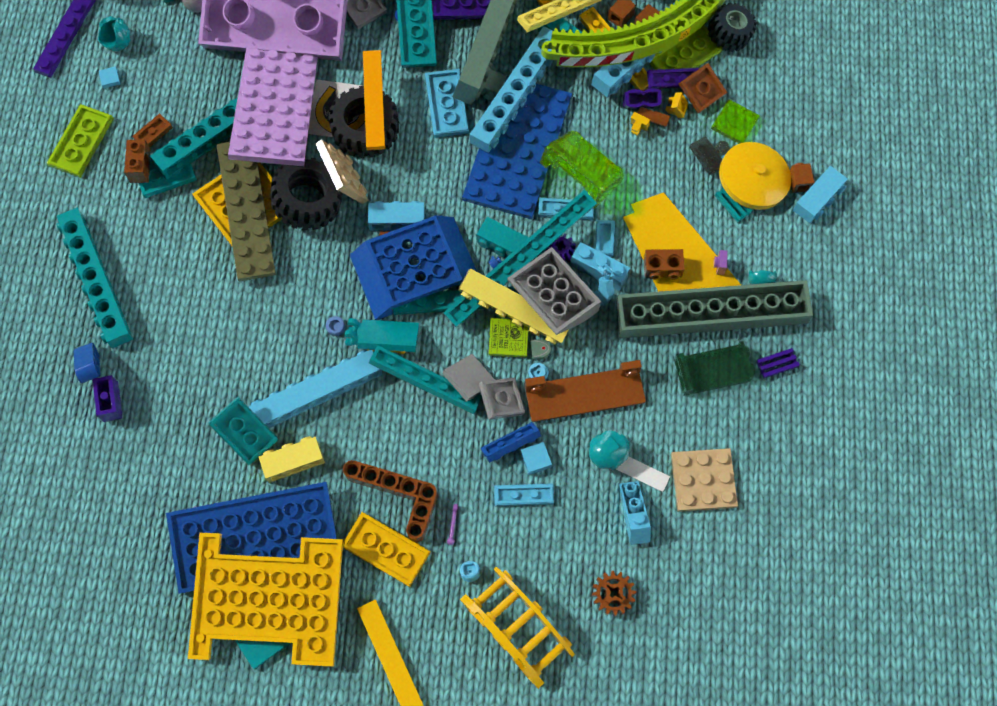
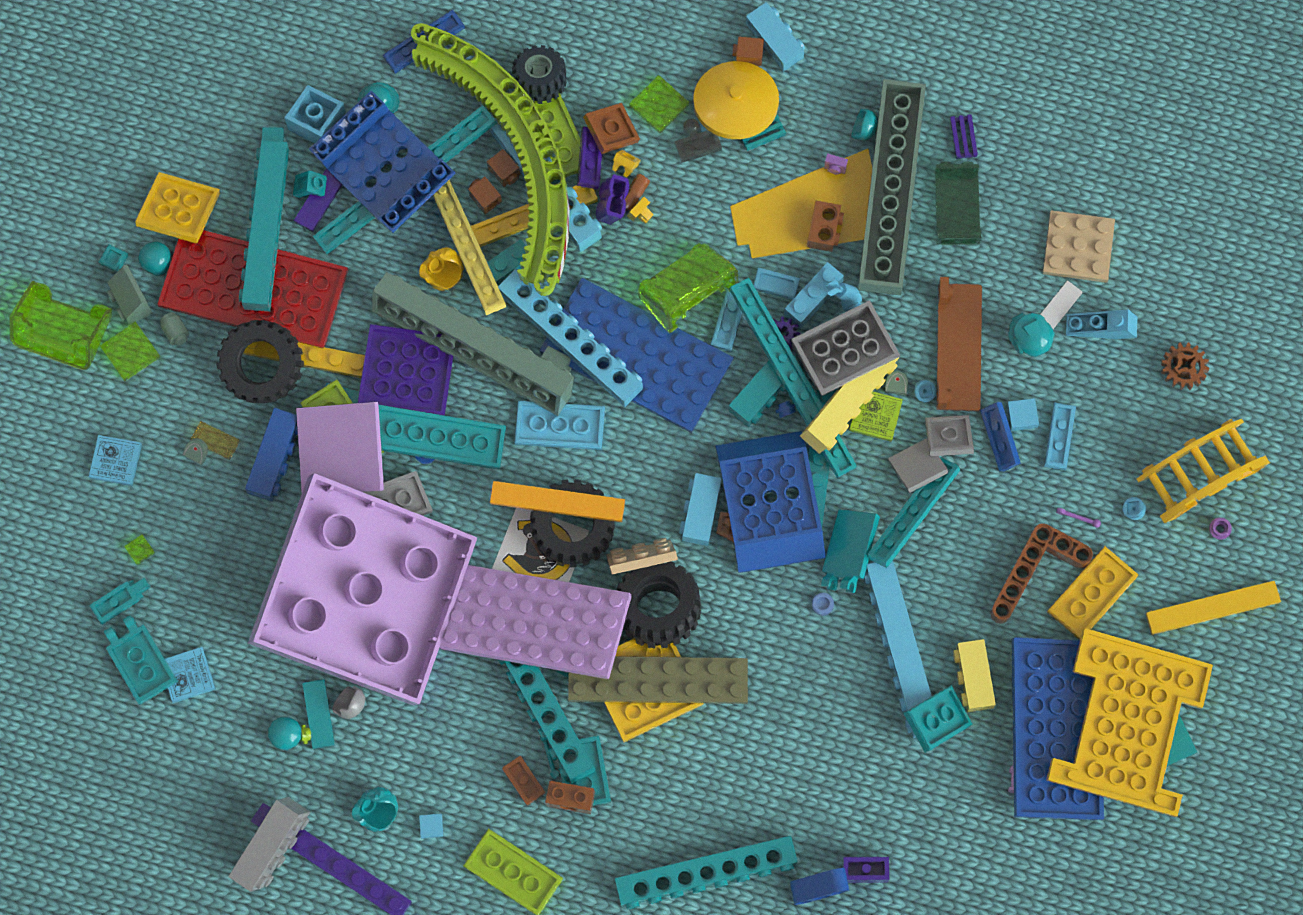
camera: 75 degrees left, 5 degrees up
(467, 647) = (1220, 522): none -> medium lavender plate

